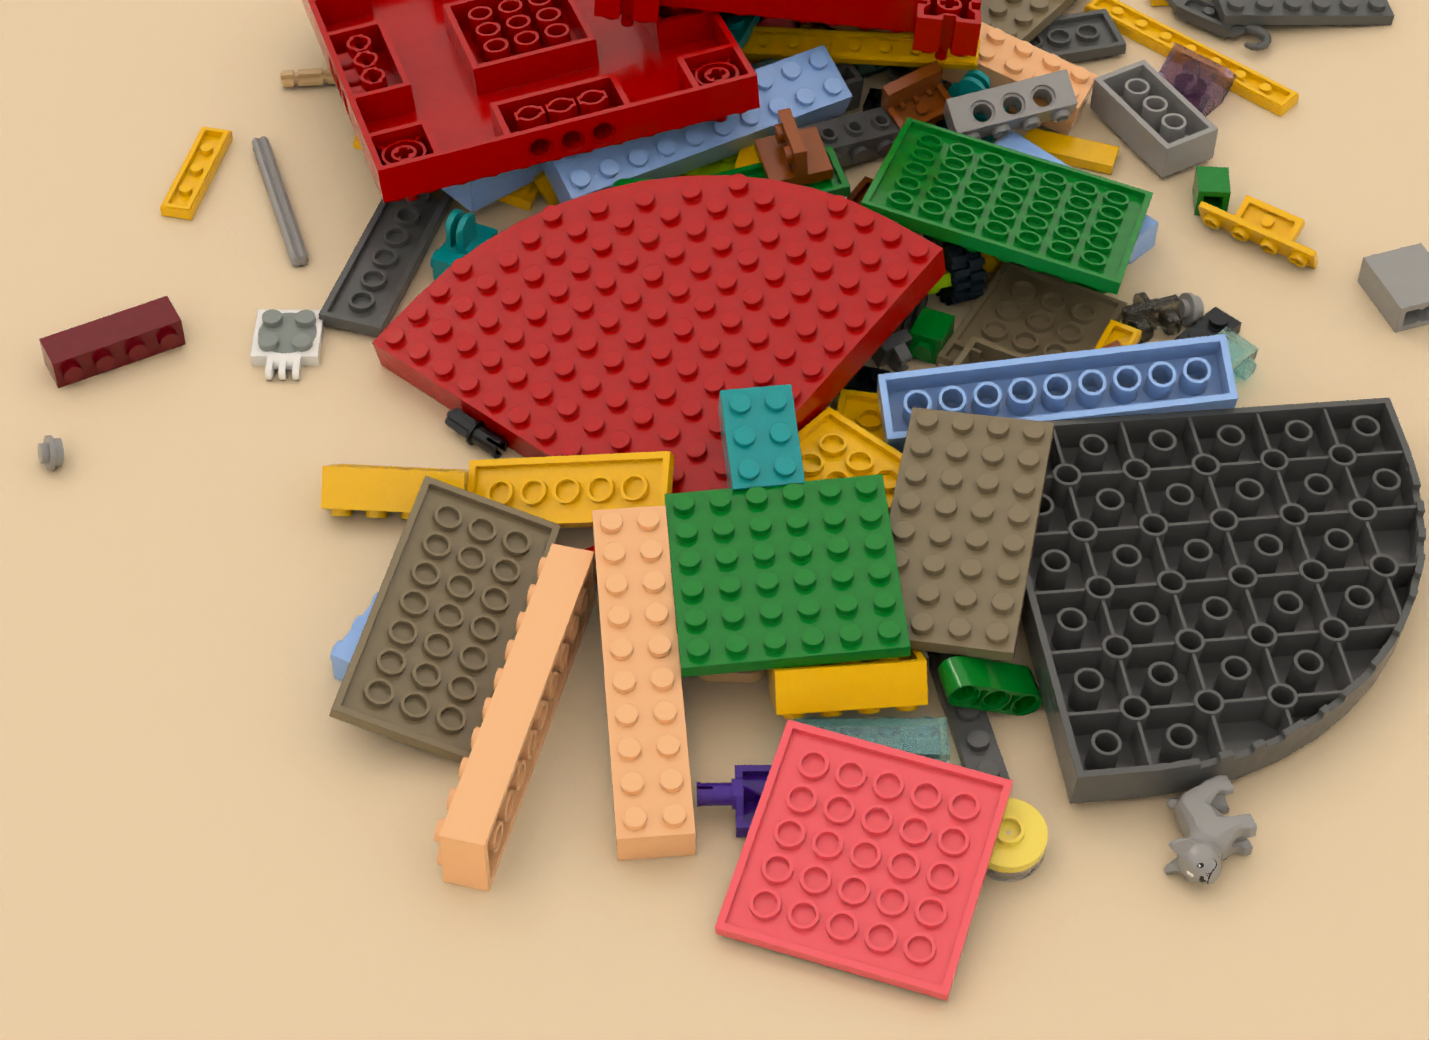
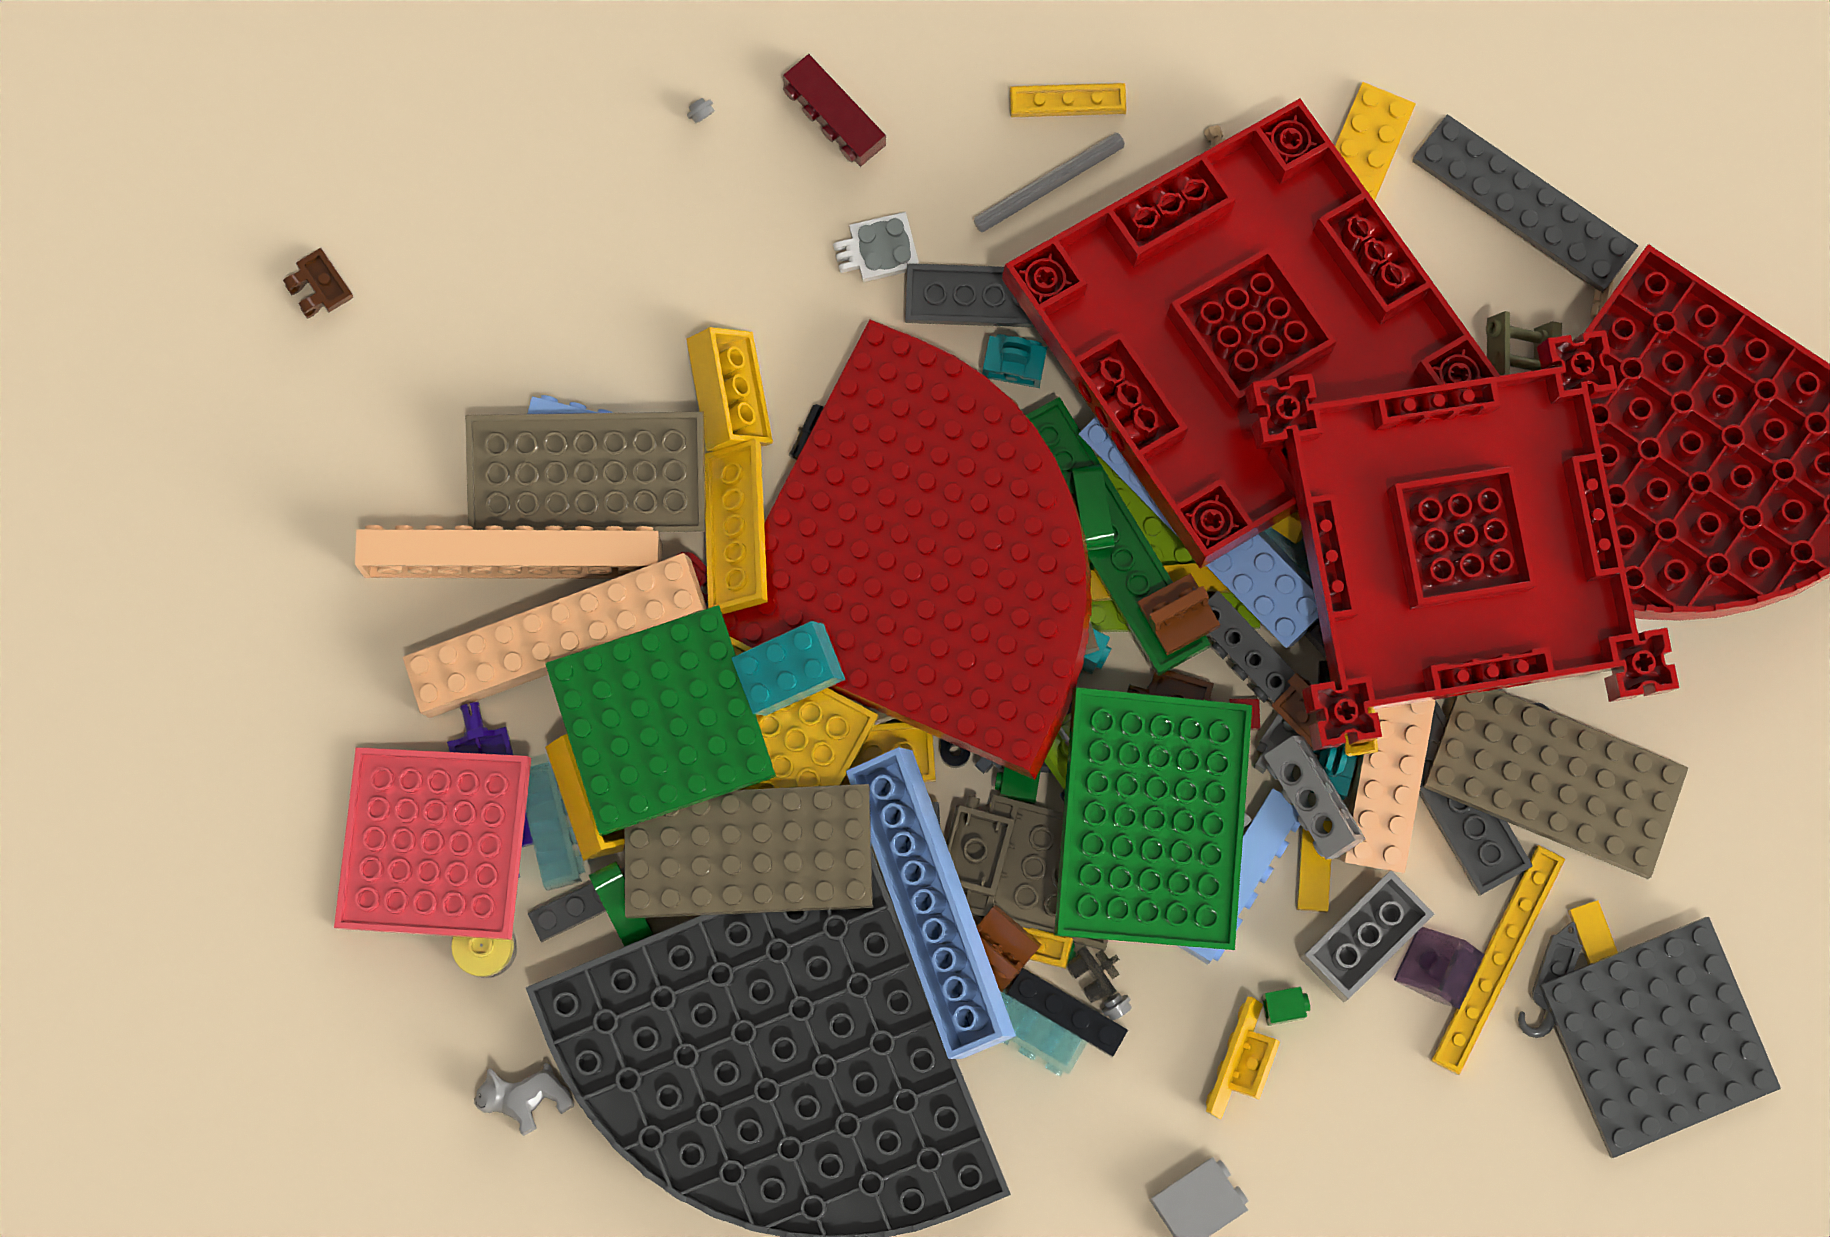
camera: 75 degrees right, 30 degrees up
(79, 853) = (323, 279): none -> reddish brown plate

